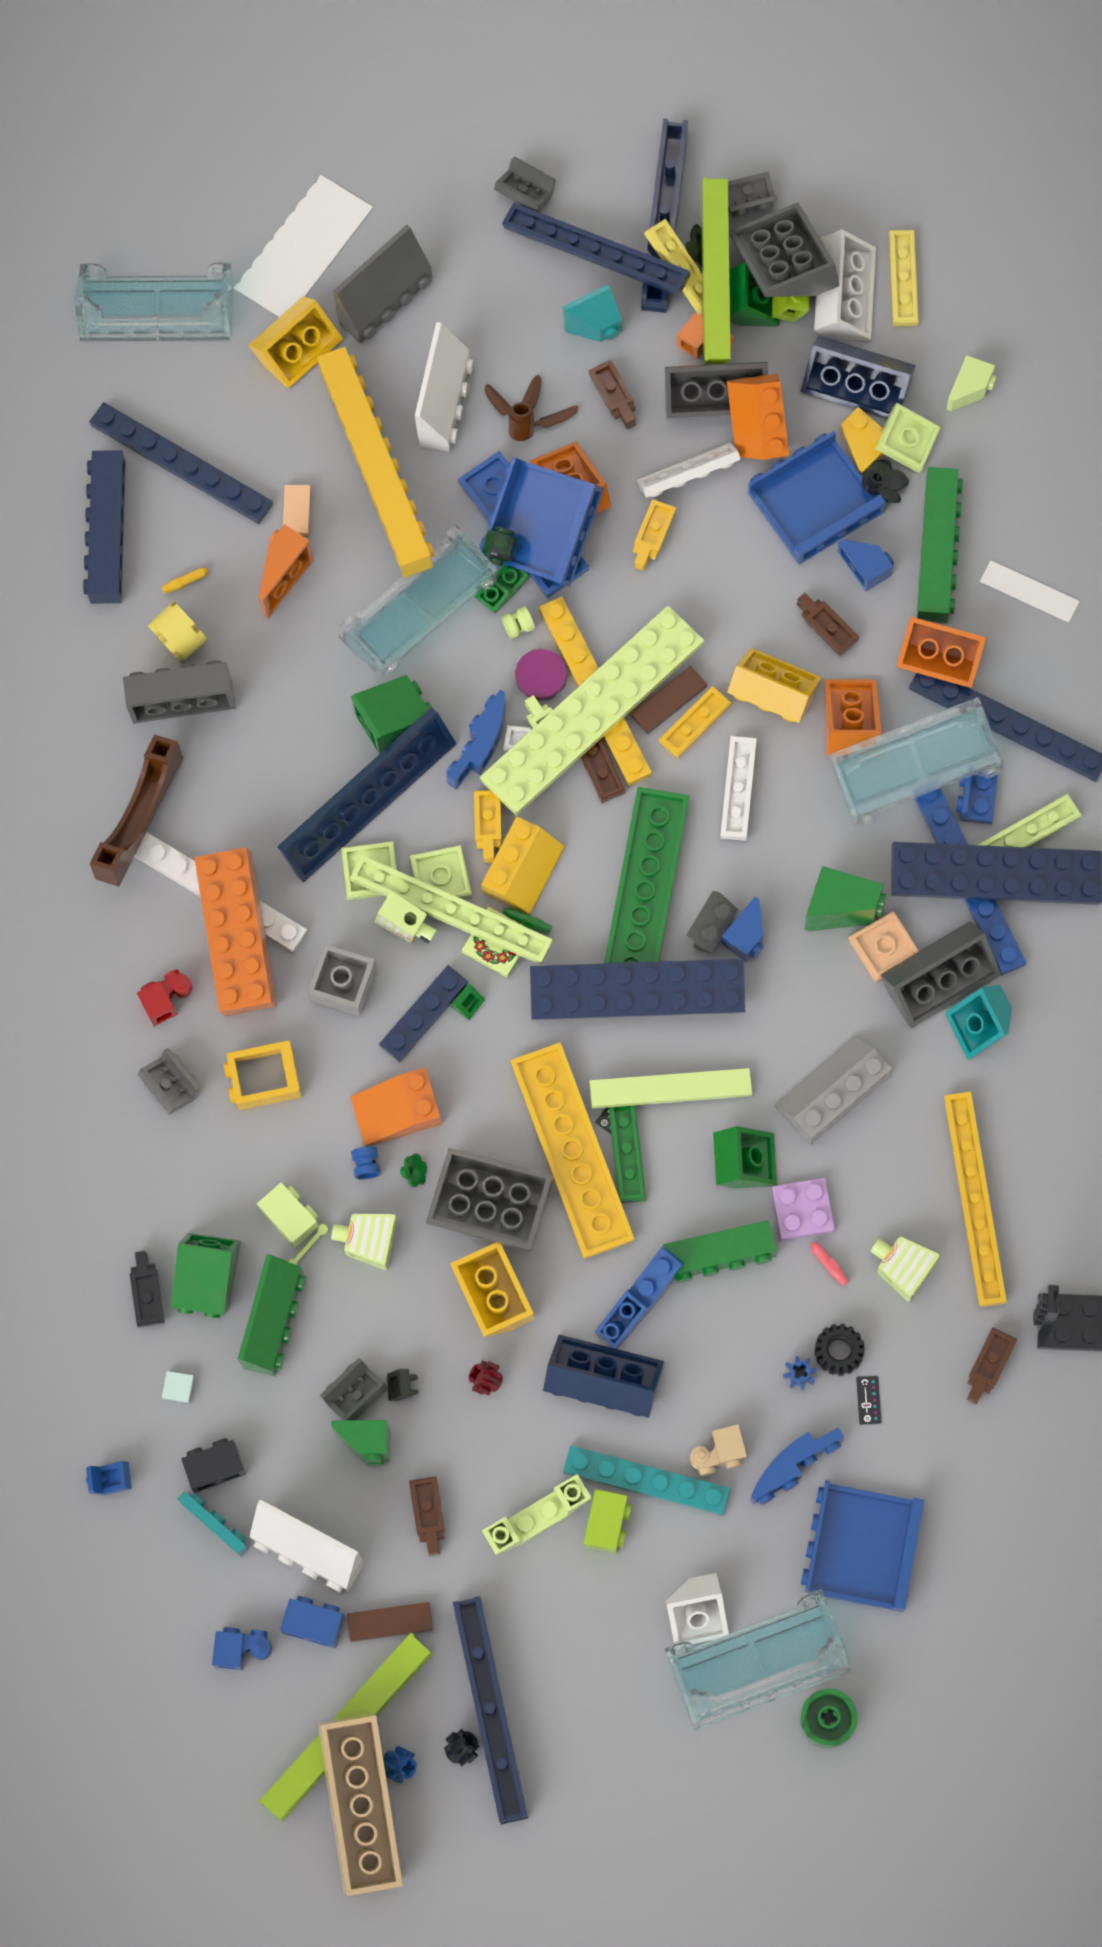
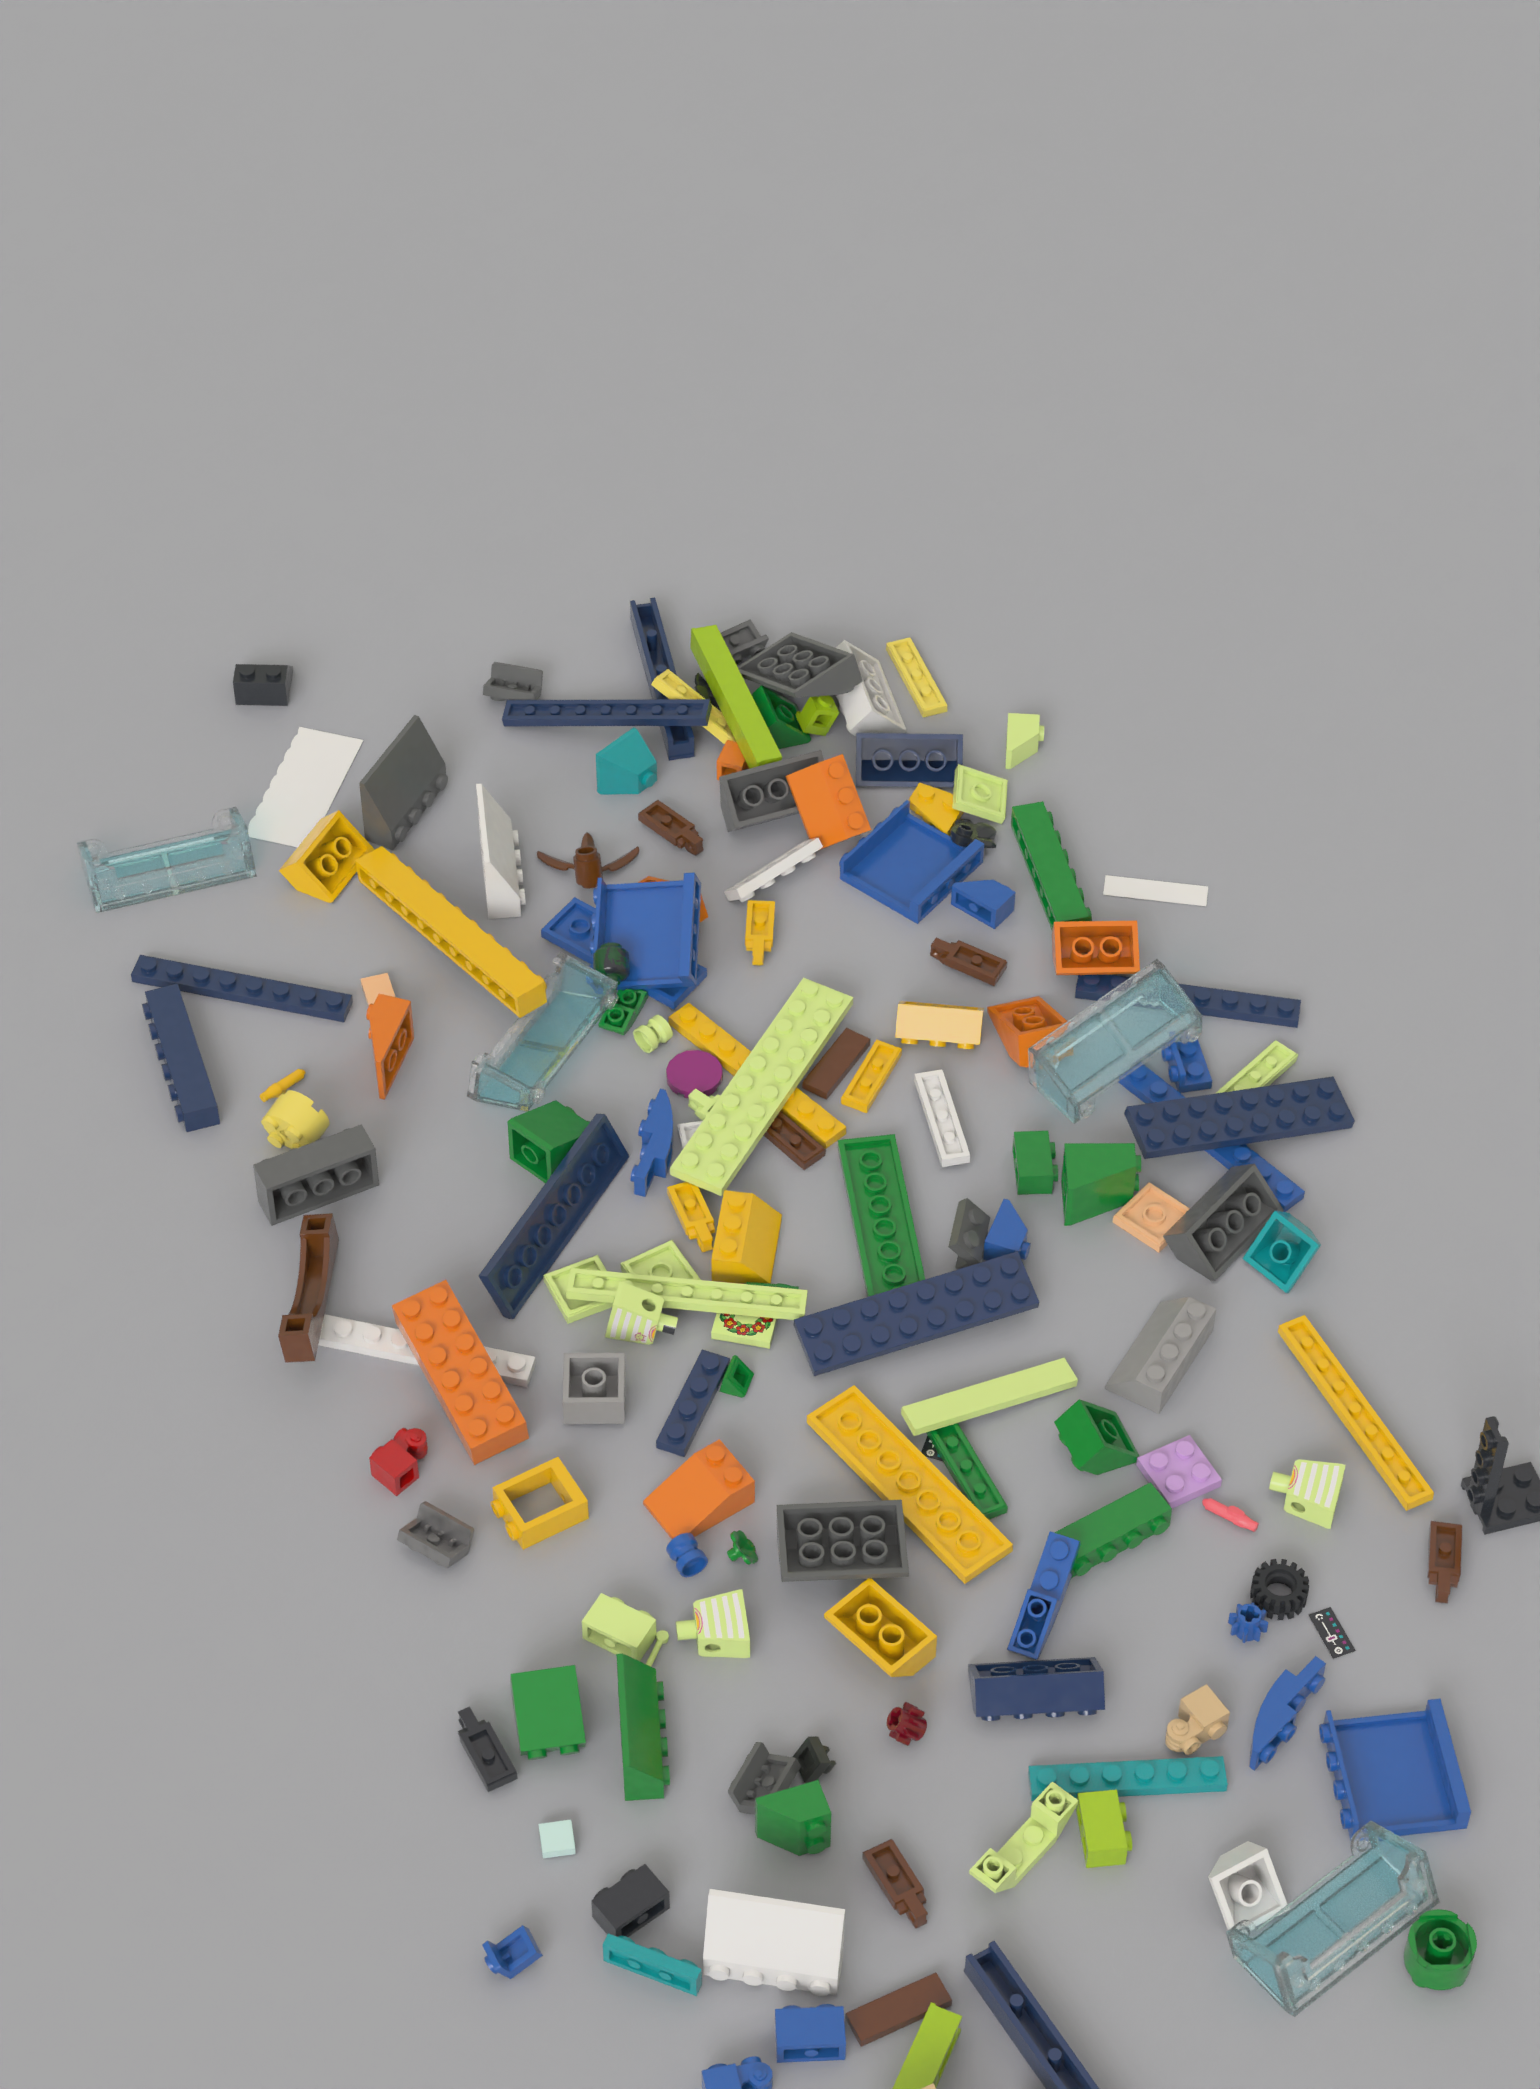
camera: 25 degrees left, 25 degrees down
(300, 115) = (262, 684): none -> black slope
(799, 861) = (1033, 1162): none -> green brick

